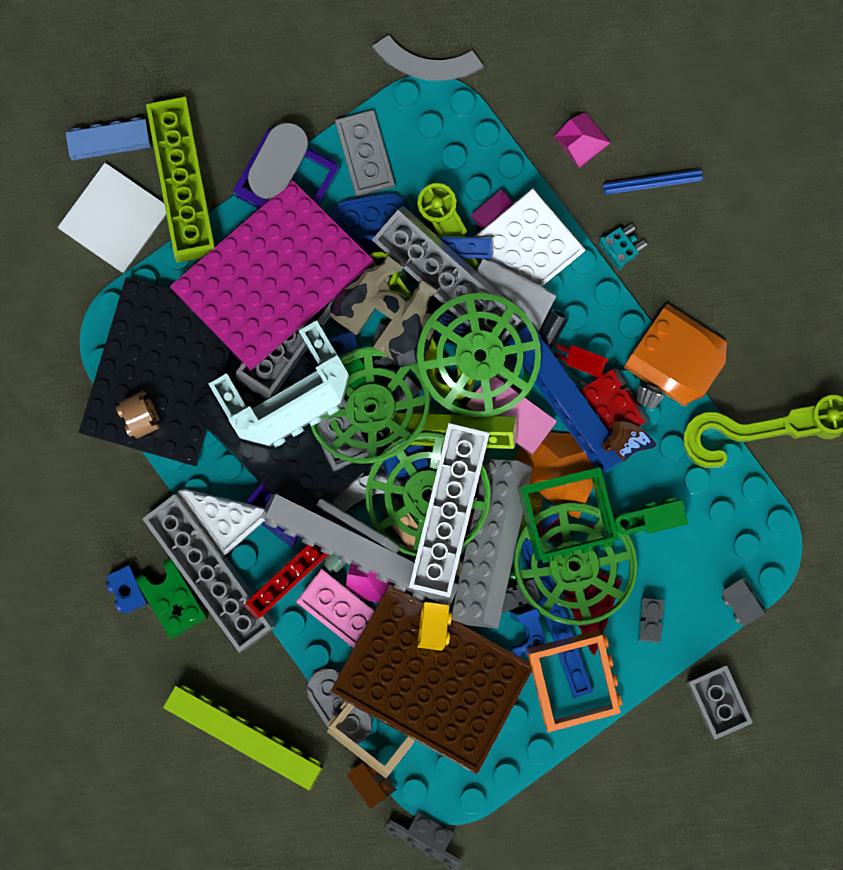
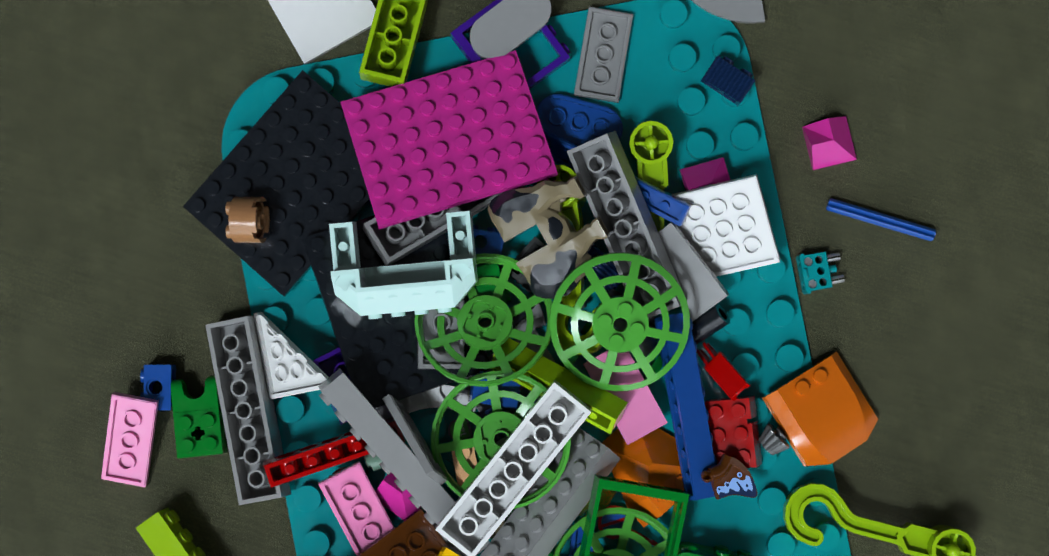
camera: 25 degrees right, 5 degrees up
(122, 643) = (129, 439): none -> bright pink tile
(475, 125) = (728, 79): none -> dark blue brick

